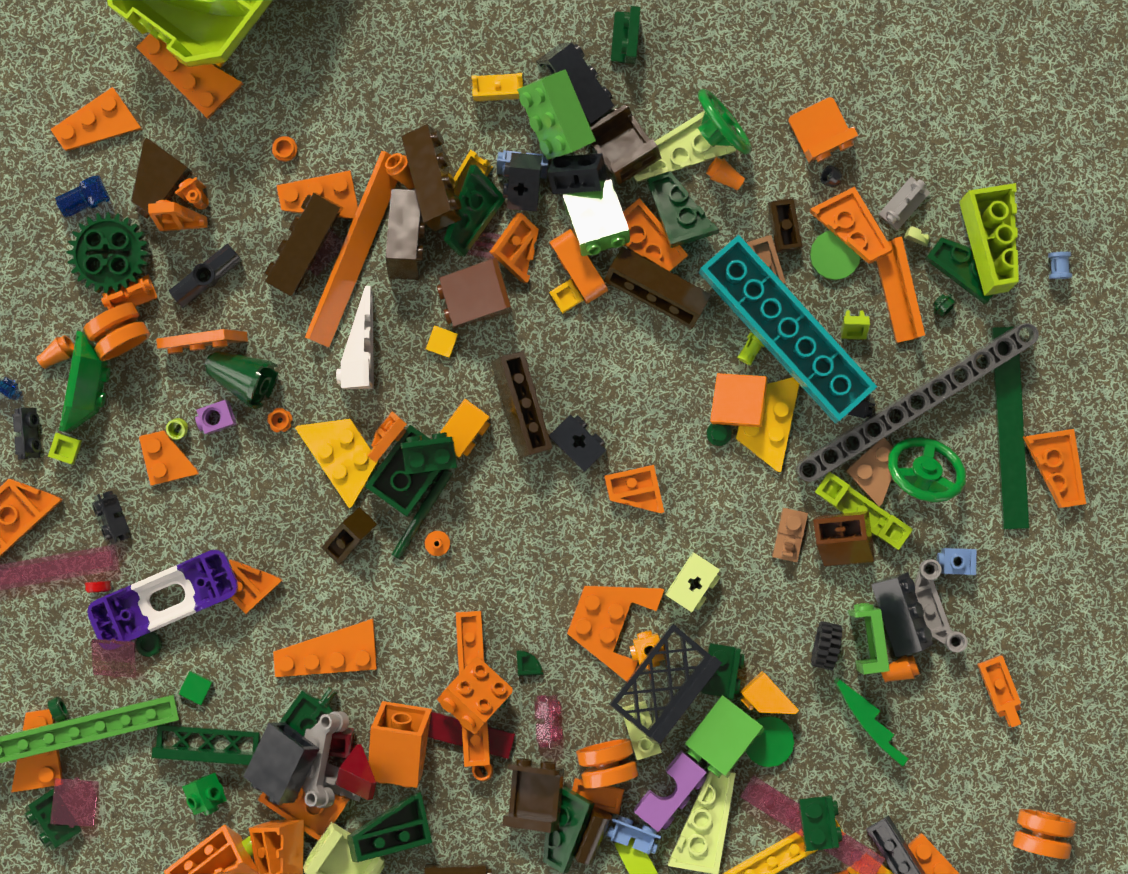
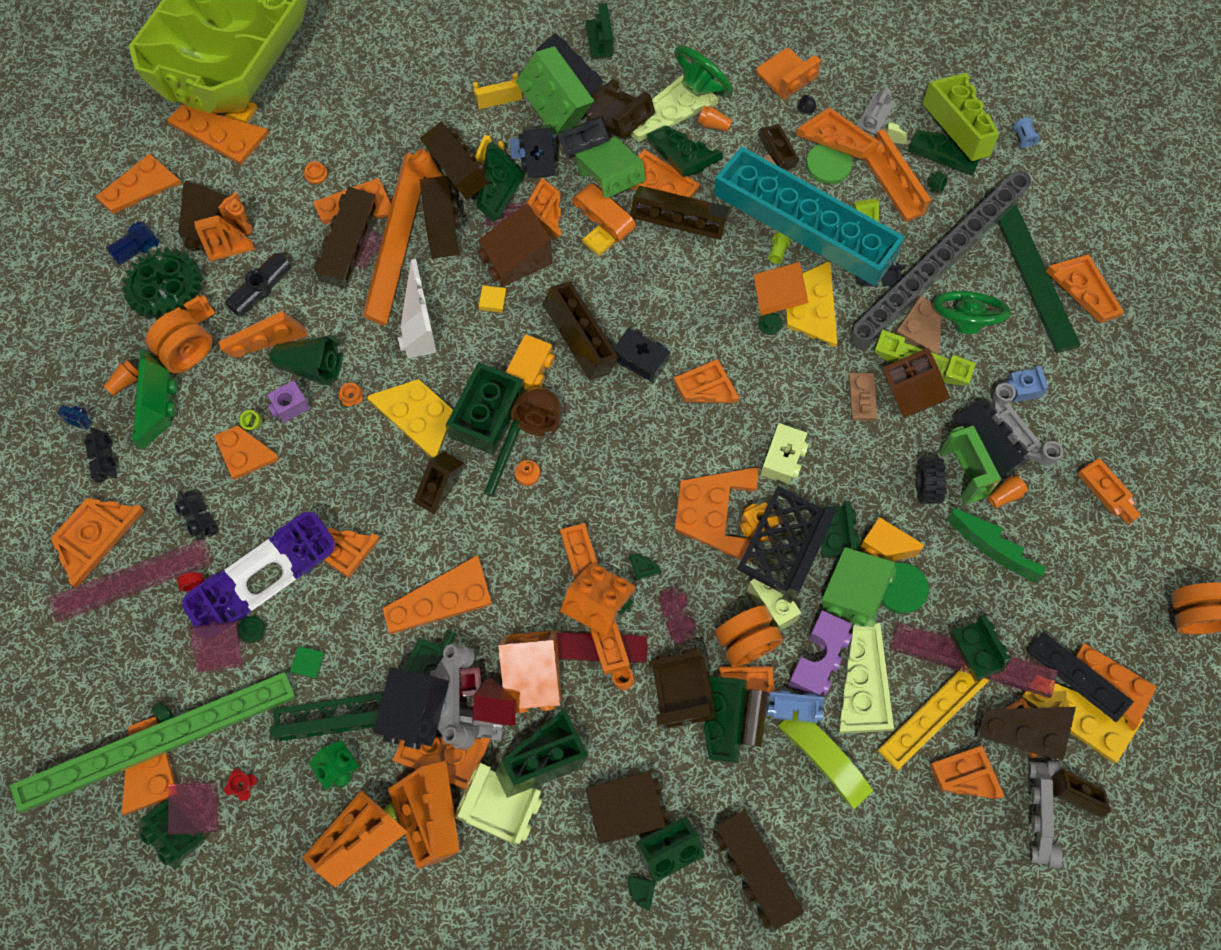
camera: 15 degrees left, 20 degrees down
(64, 448) = (140, 458): lime tile -> none
(111, 789) = (232, 785): none -> red plate
(389, 430) = (460, 375): orange wing -> none
(429, 454) = (501, 379): dark green bracket -> none
(461, 484) = (537, 411): none -> reddish brown cylinder

